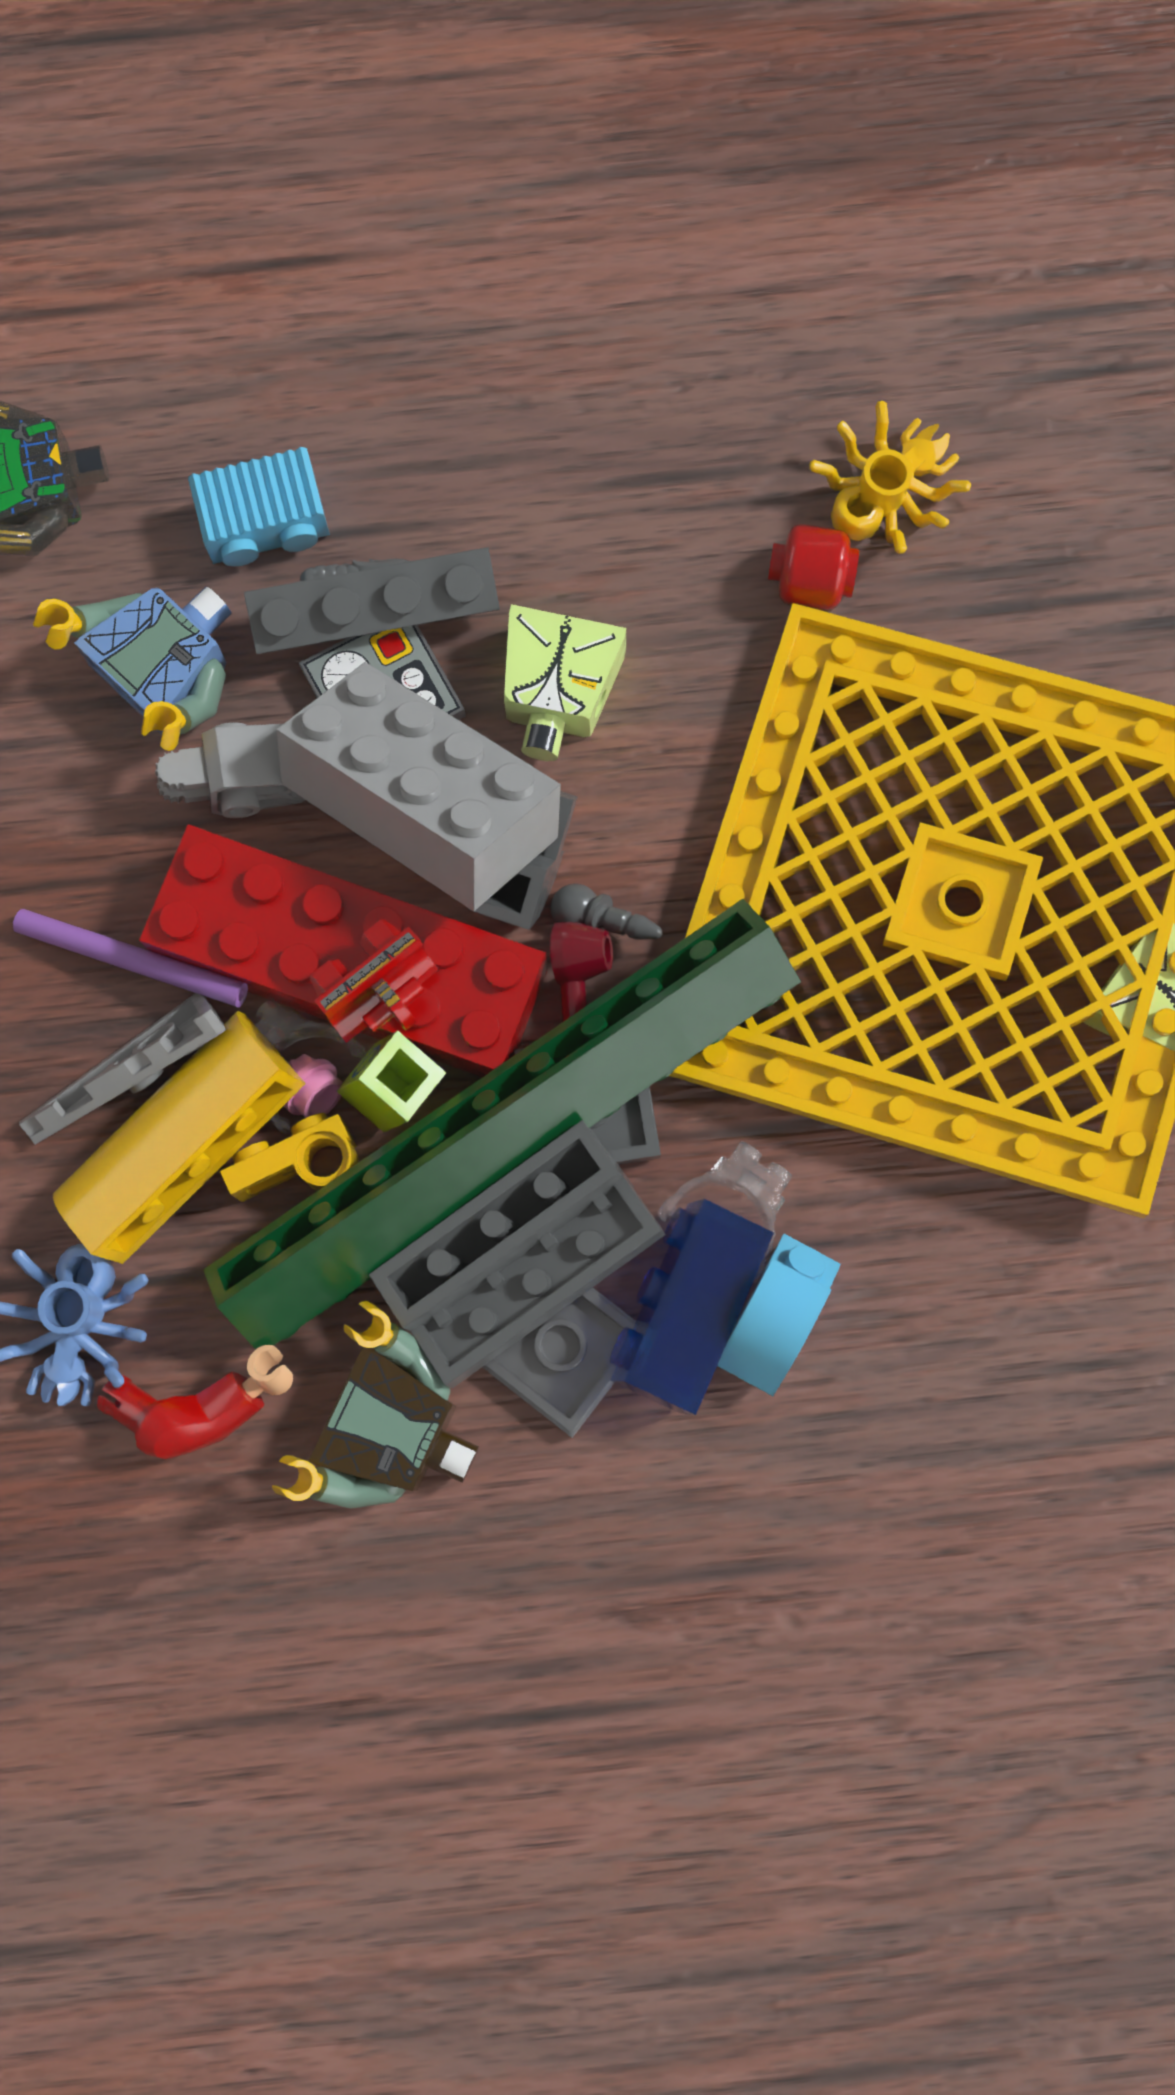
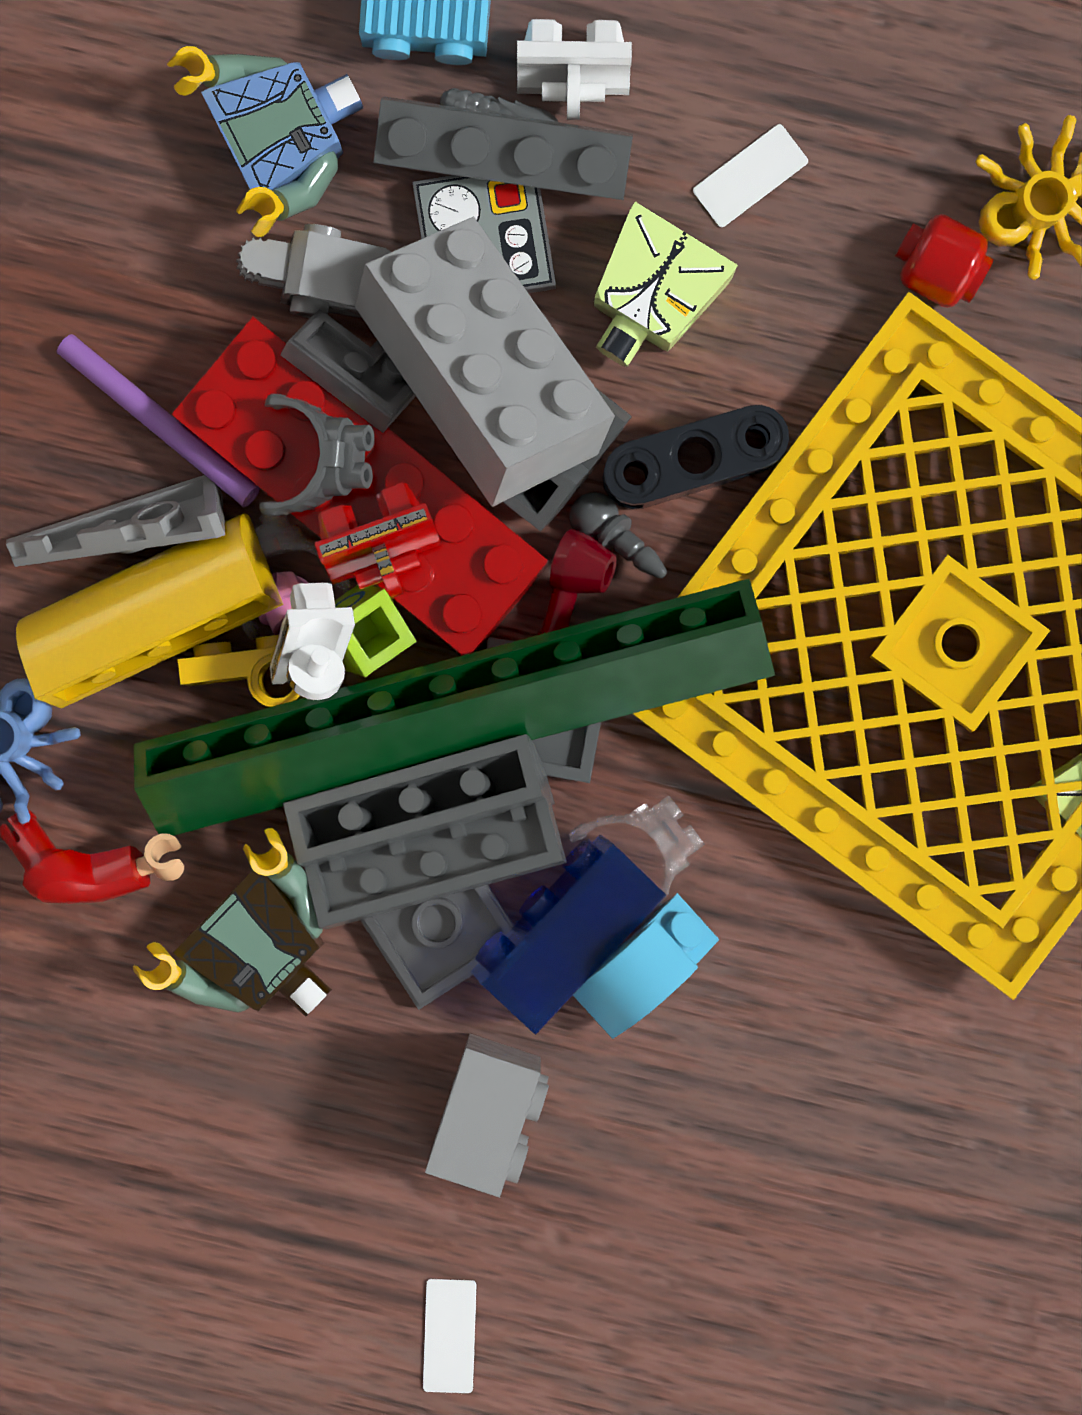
camera: 15 degrees right, 10 degrees up
(298, 842) = (350, 369): none -> flat silver tile
(314, 926) = (340, 459): none -> dark grey helmet
(344, 1099) = (312, 642): none -> white hips
(413, 511) = (573, 69): none -> white hips
(609, 557) = (750, 175): none -> white sticker
(665, 789) = (722, 437): none -> black piece
(677, 1515) = (484, 1116): none -> light grey piece
(718, 1763) = (449, 1336): none -> white sticker

